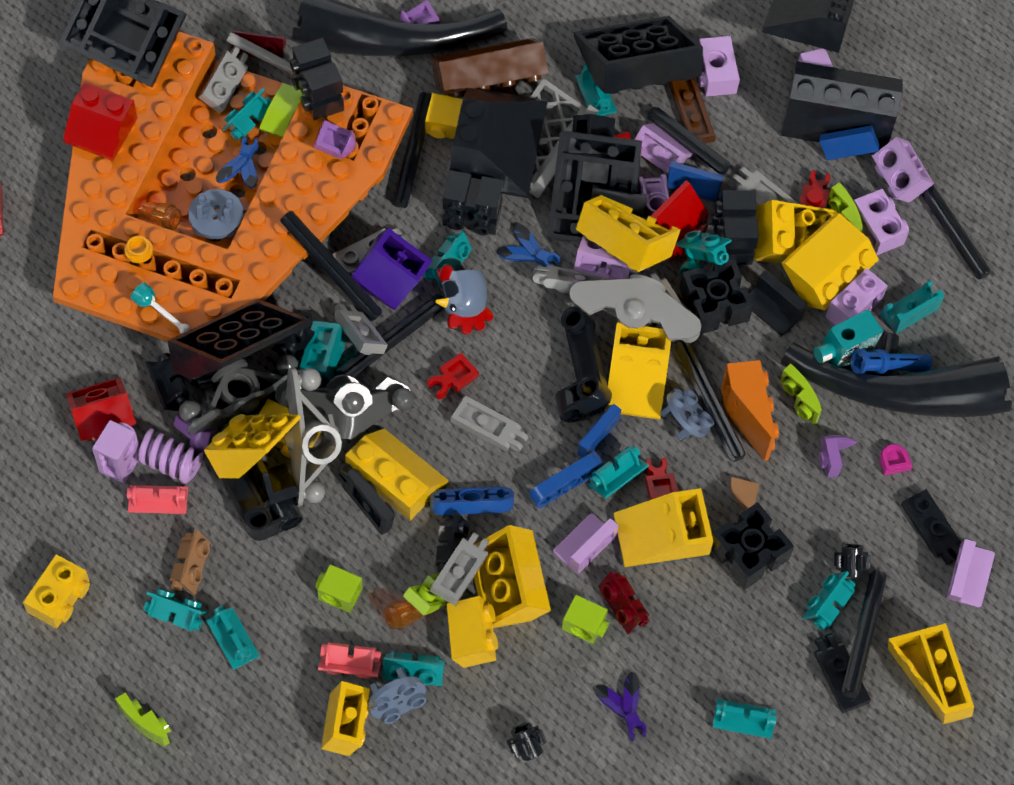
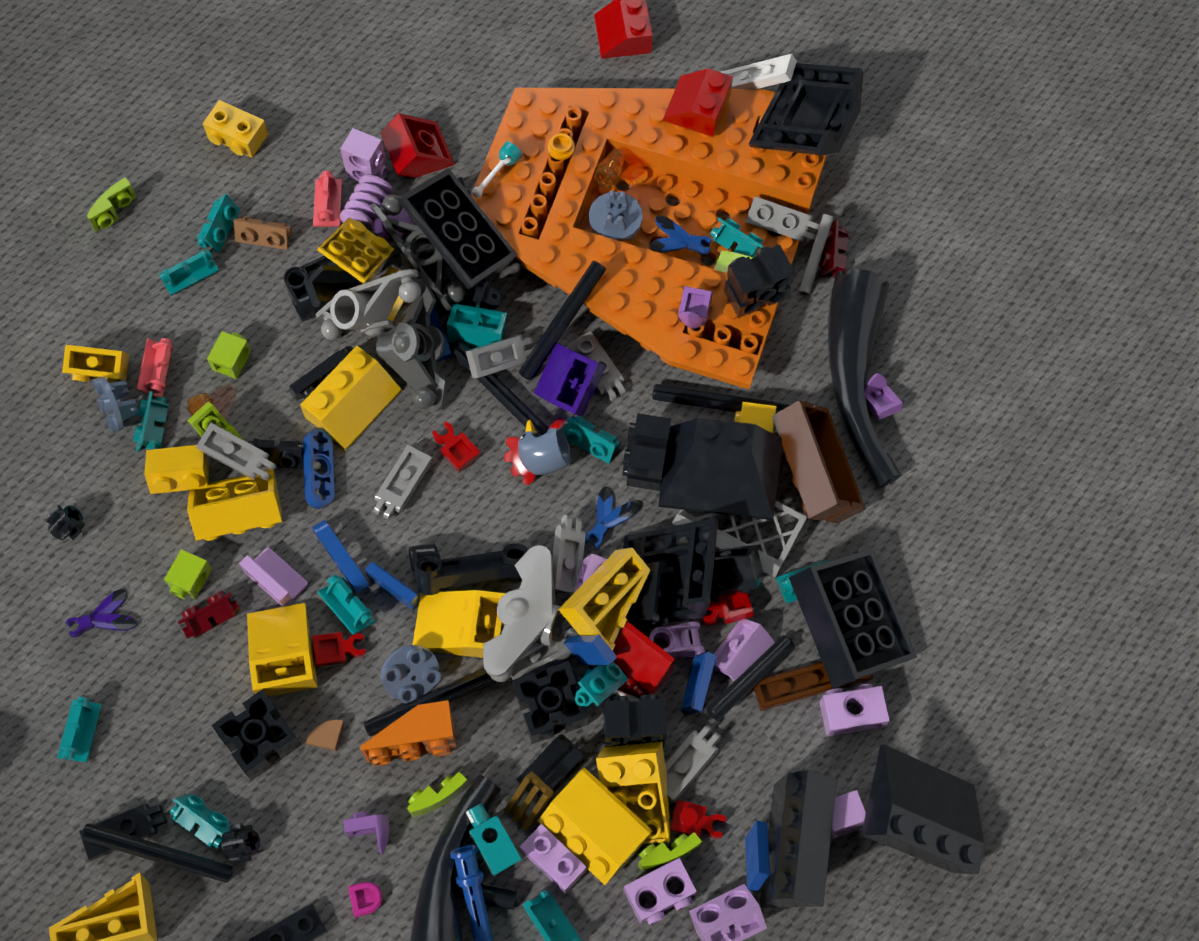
camera: 90 degrees right, 5 degrees up
(64, 85) = (763, 73): none -> white plate
(673, 253) = (590, 650): none -> blue tile
(811, 311) = (520, 812): none -> pearl gold tile

